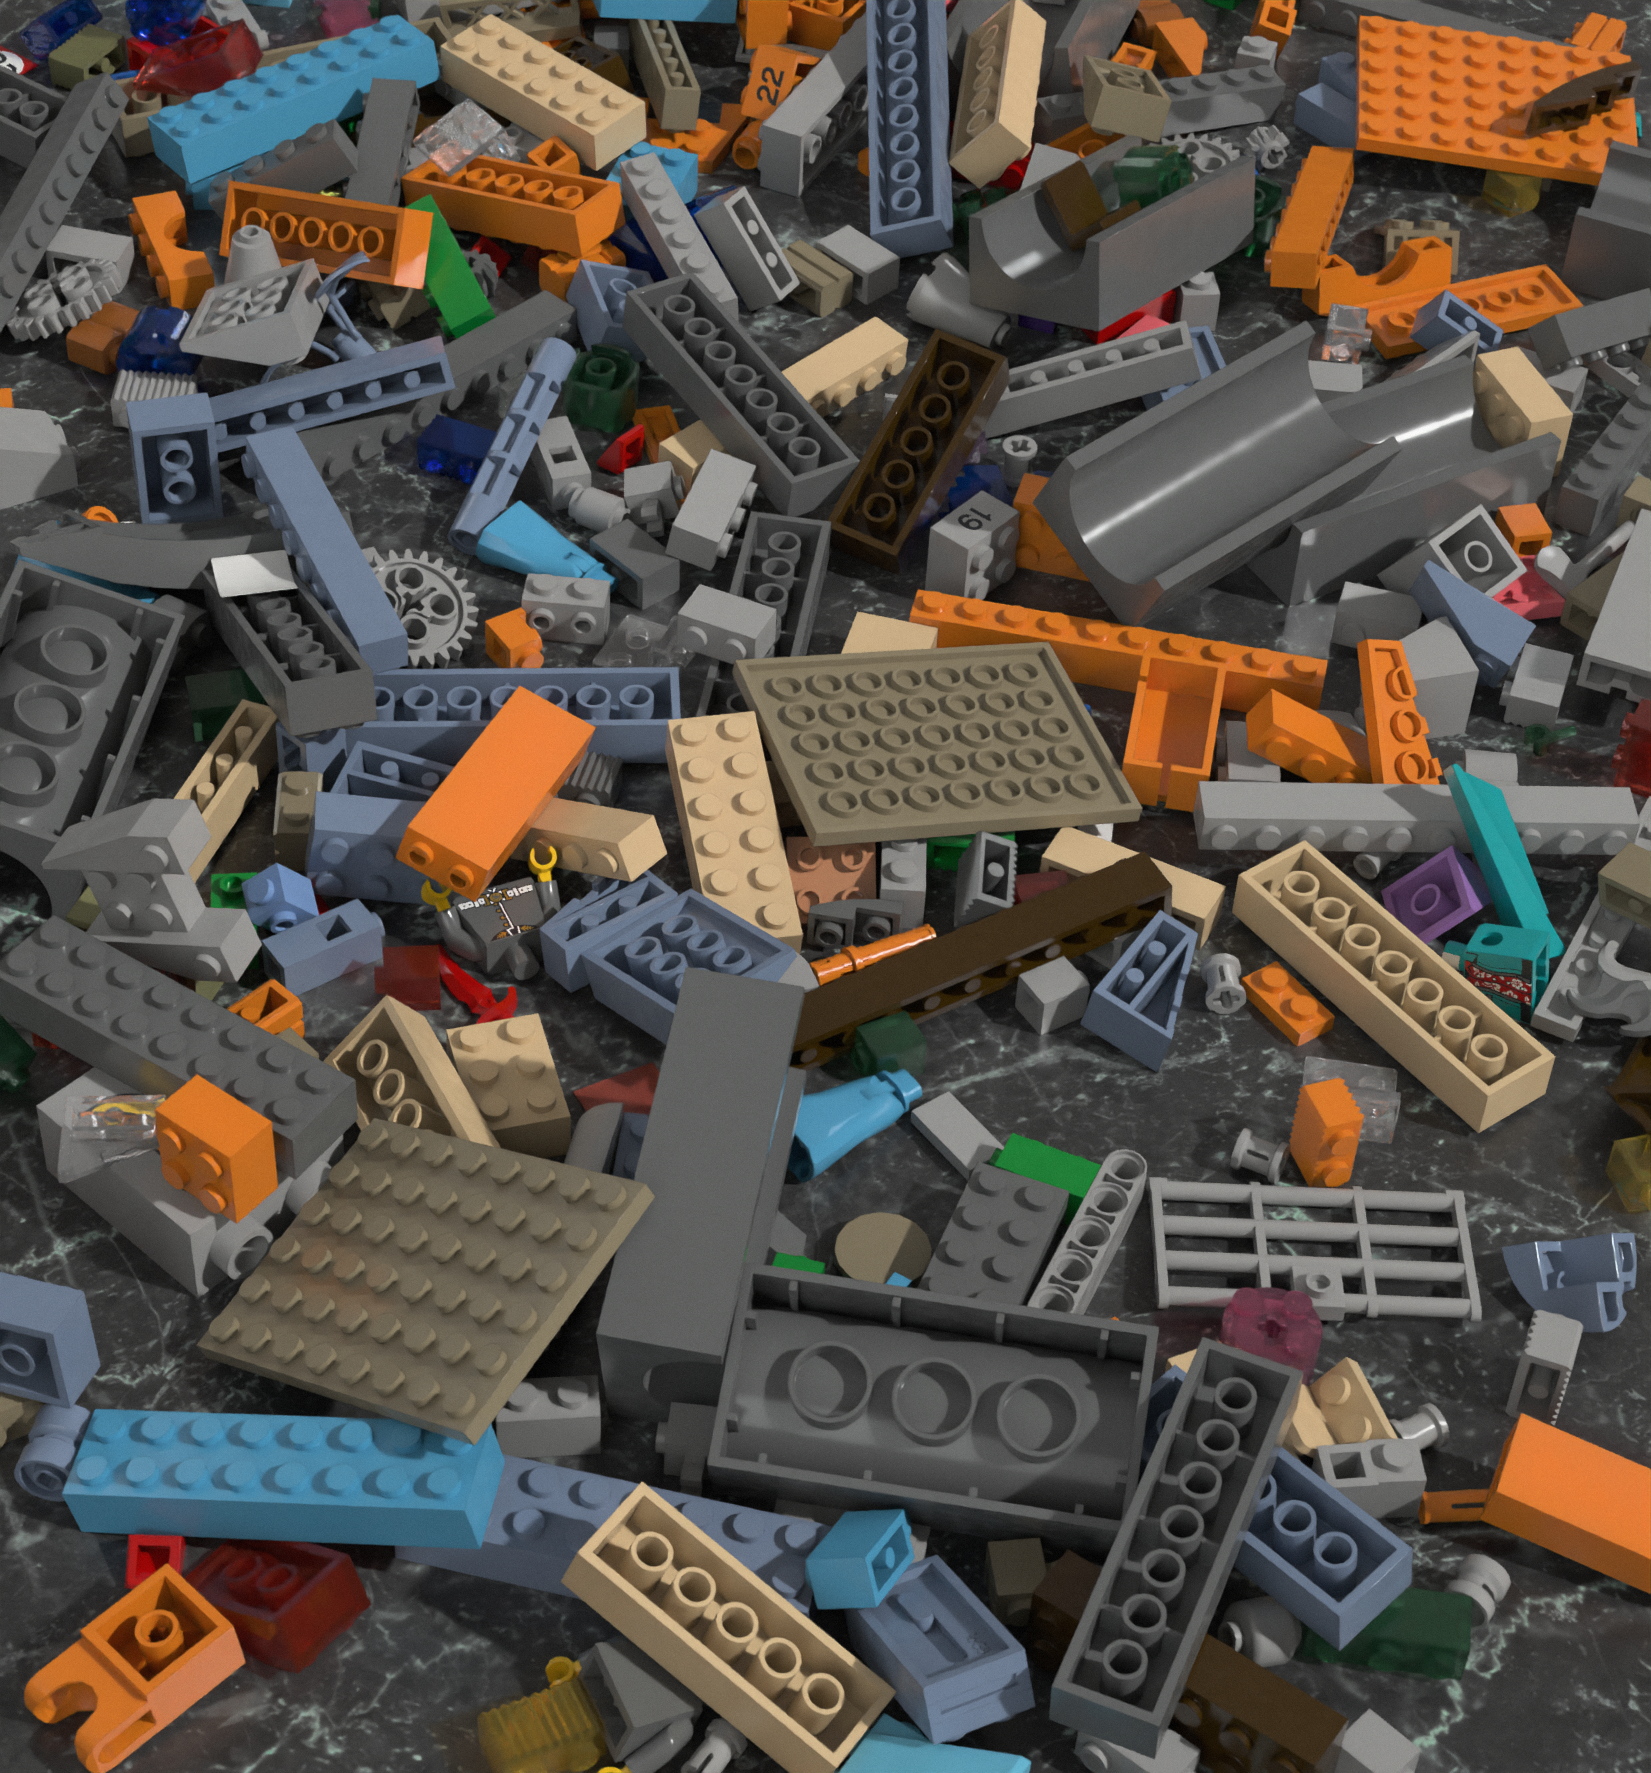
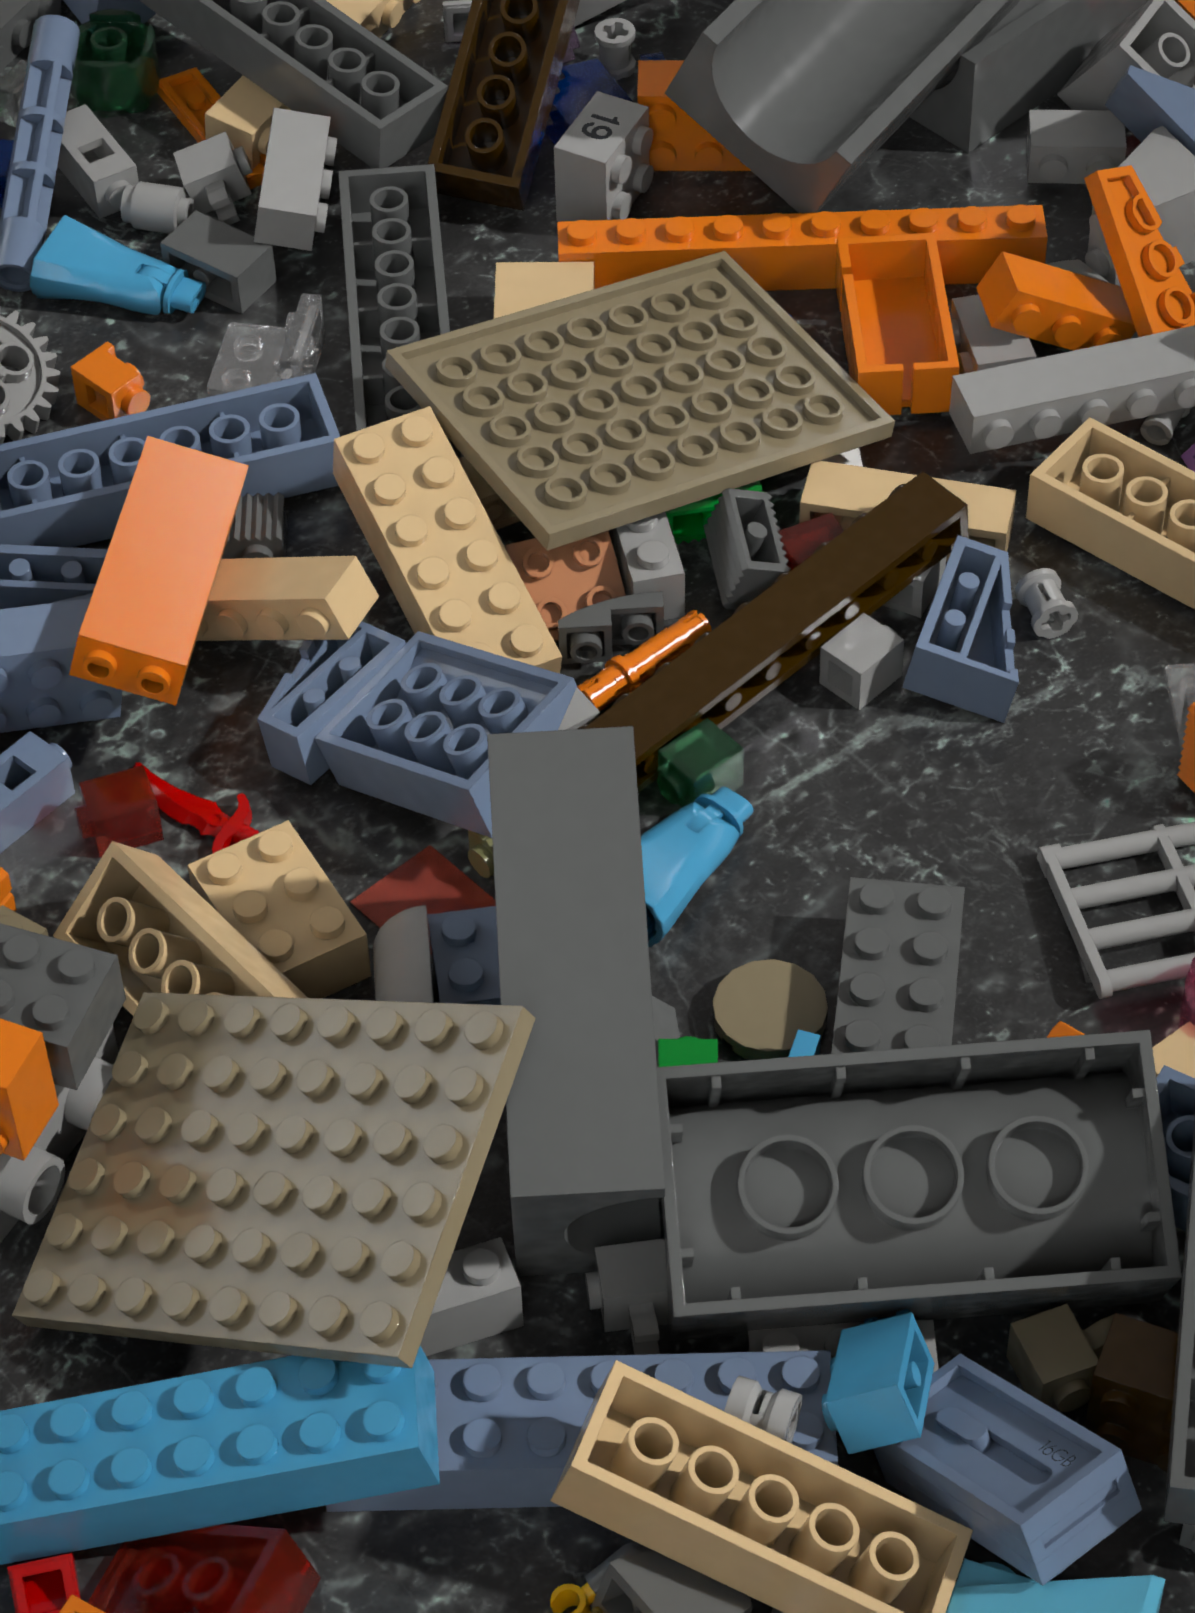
camera: 10 degrees left, 5 degrees up
(503, 923) = (213, 722): dark grey torso -> none
(566, 604) = (156, 327): light grey brick -> none
(624, 451) = (162, 132): red slope -> none
(725, 625) = (358, 312): light grey brick -> none
(762, 1558) = (769, 1411): none -> light grey wheel
(955, 1133) = (808, 849): light grey tile -> none
(1049, 1166) = (930, 863): green brick -> none
(1093, 1235) = (1002, 935): light grey beam -> none
(1243, 1156) = (1141, 781): light grey bush -> none
(1287, 1003) = (1123, 609): orange plate -> none

